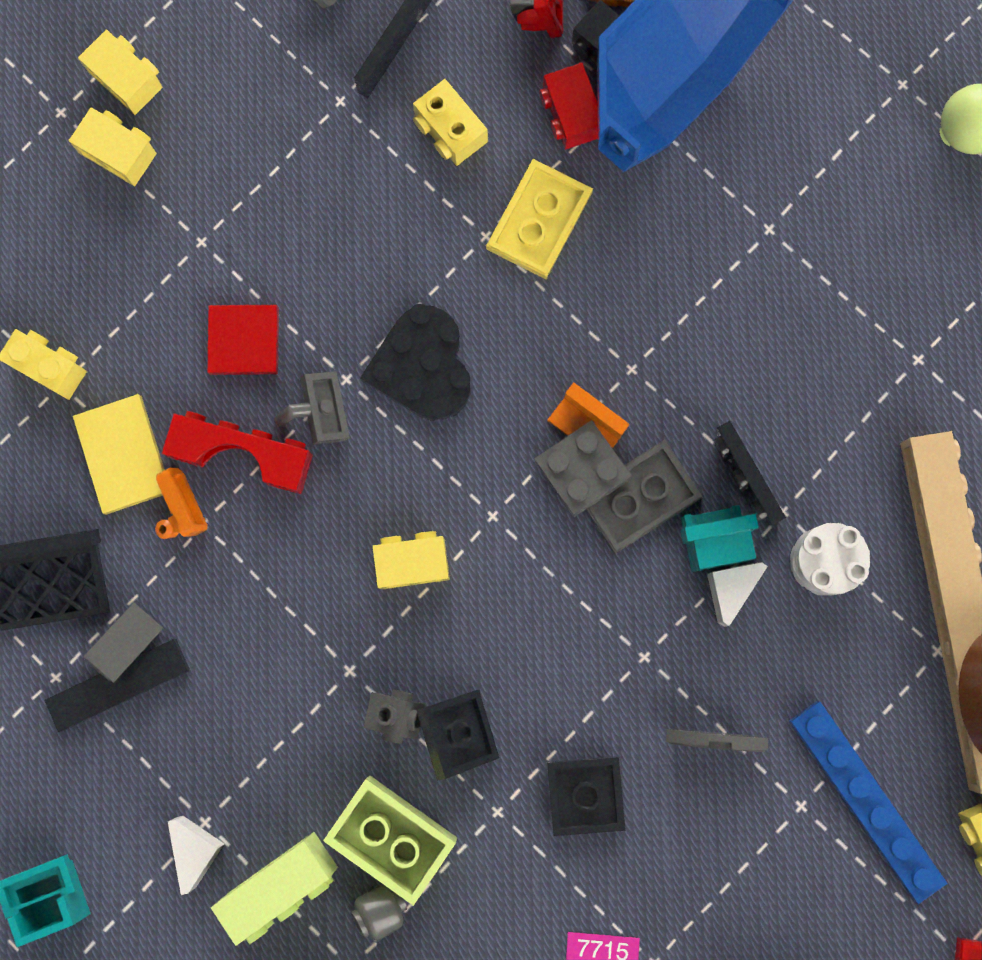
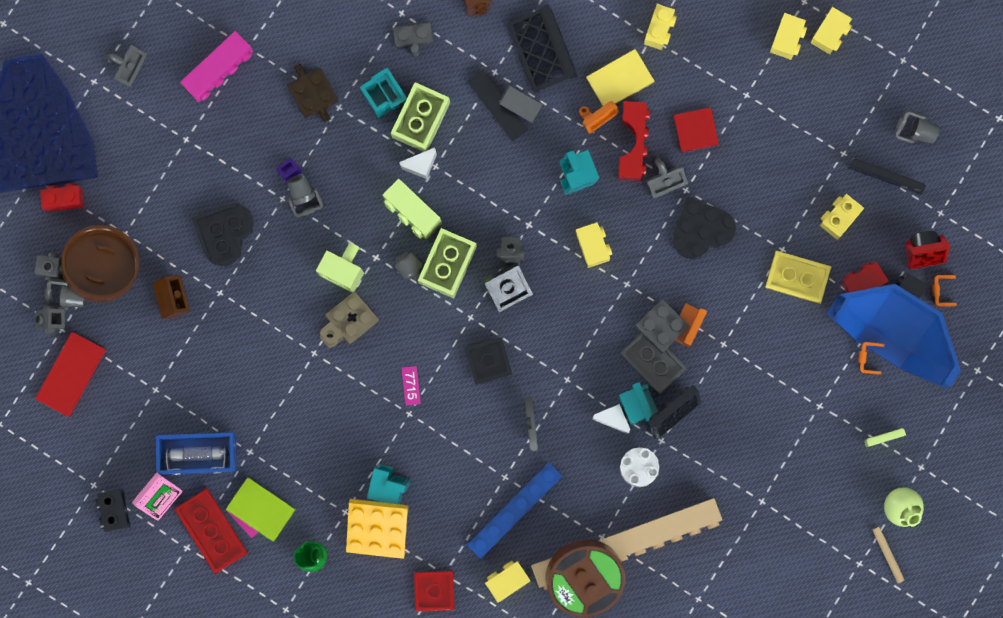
camera: 85 degrees right, 0 degrees up
(104, 836) = (420, 117): none -> yellowish green brick
(272, 561) = (578, 171): none -> teal plate
(698, 138) = (862, 357): none -> orange piece
(847, 129) = (884, 437): none -> yellowish green tile

